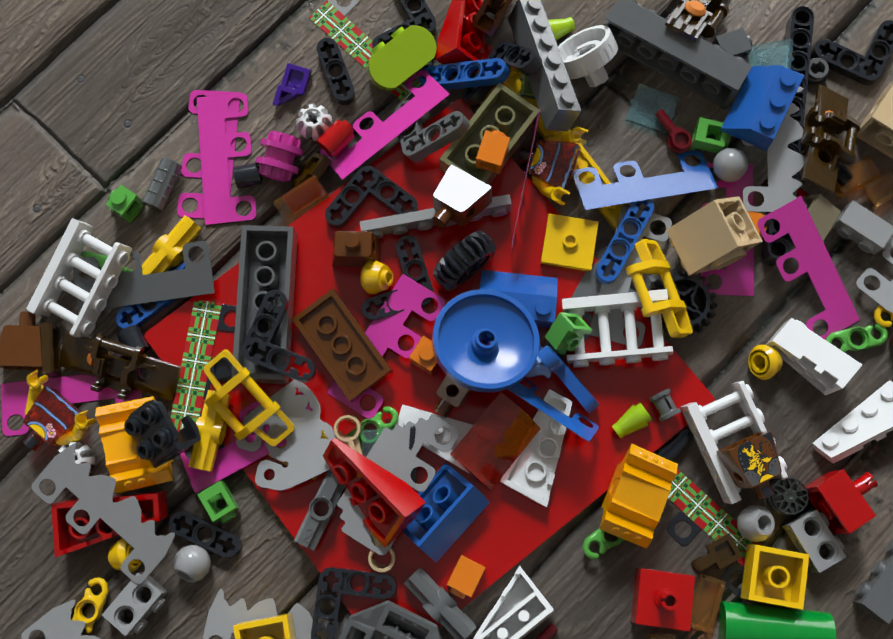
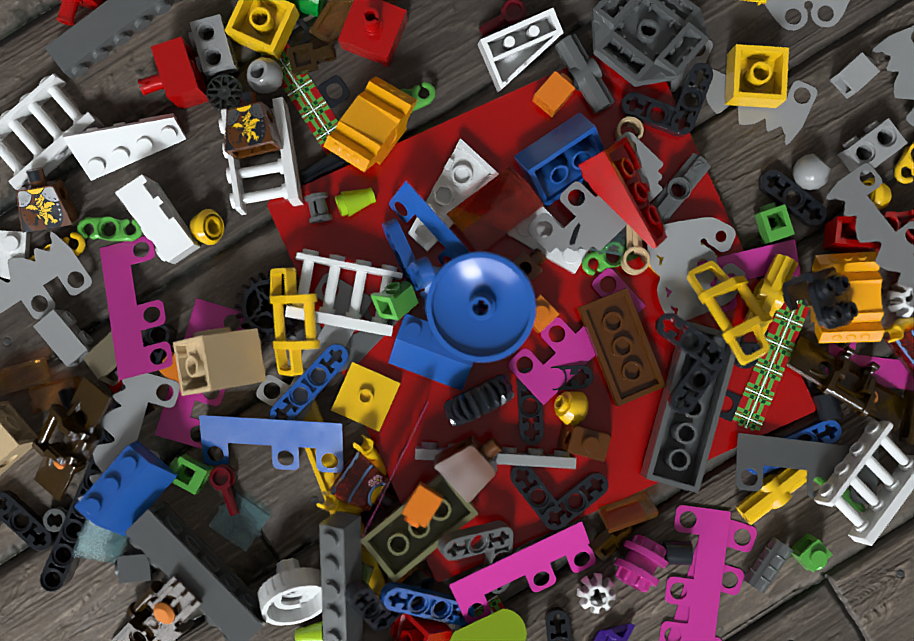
camera: 170 degrees left, 10 degrees up
(336, 138) = (577, 568): red brick -> none
(730, 164) = (178, 436): light grey piece -> none

